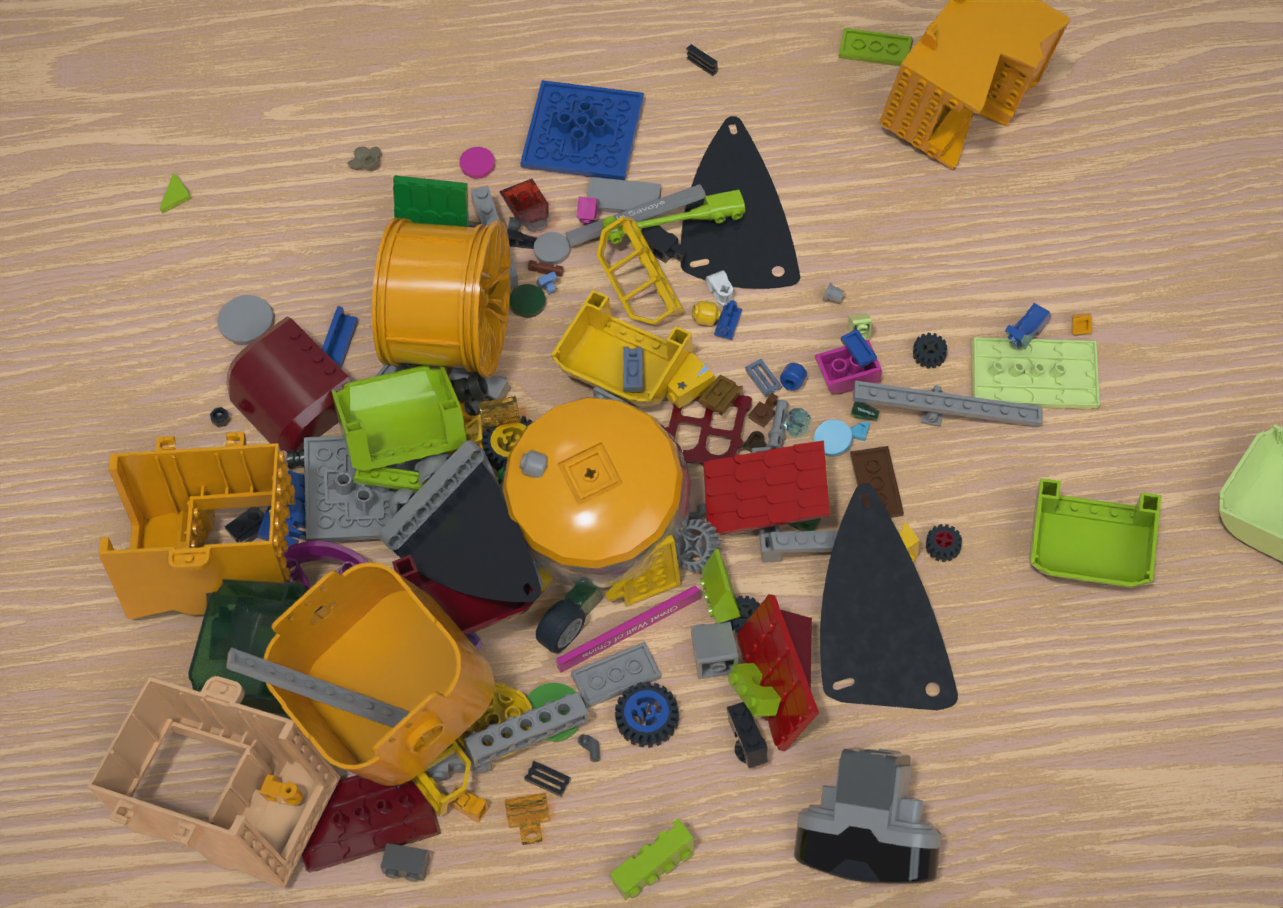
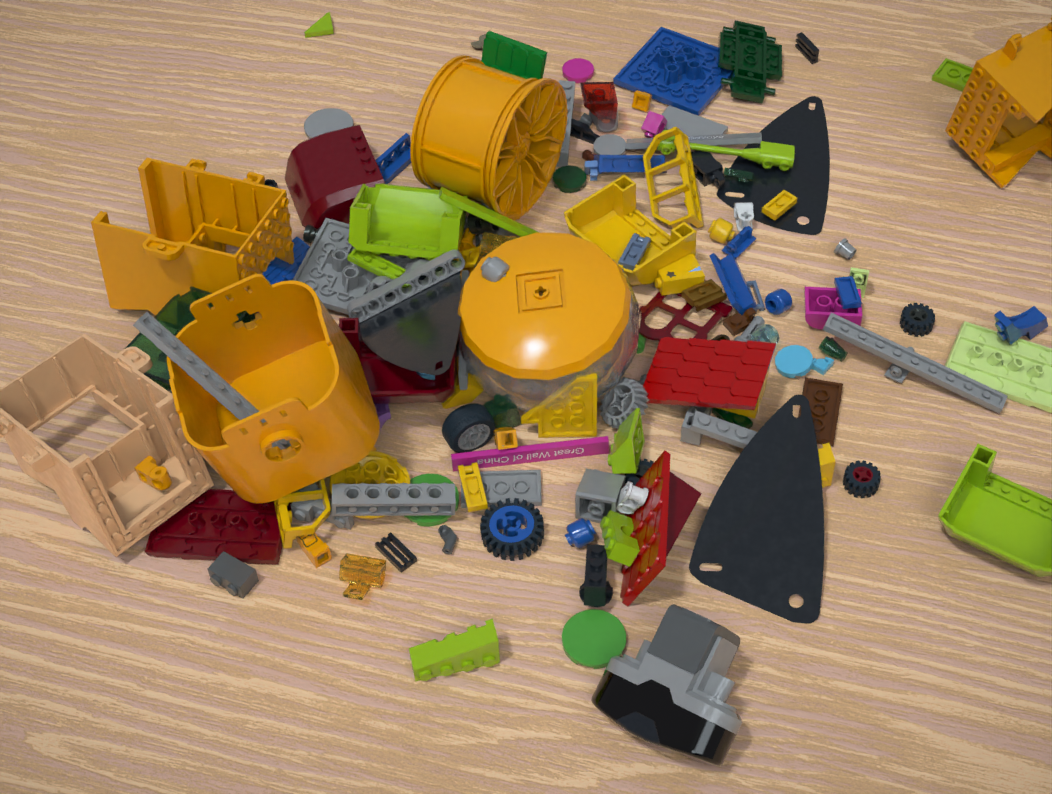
camera: 20 degrees right, 10 degrees down
(494, 385) = (484, 213): none -> lime tile
(561, 181) = (641, 100): none -> light orange tile
(580, 264) = (626, 163): none -> blue fence
(591, 685) = (472, 487): none -> yellow plate
(599, 622) = (505, 438): none -> light orange leg
(650, 92) = (752, 58): none -> dark green piece
(697, 239) = (743, 176): none -> clear green plate
(712, 695) = (580, 533): none -> blue head
(743, 370) = (733, 282): none -> blue fence
(750, 263) = (779, 205): none -> yellow plate
(750, 646) = (631, 498): none -> white piece
(769, 796) = (593, 638): none -> bright green tile

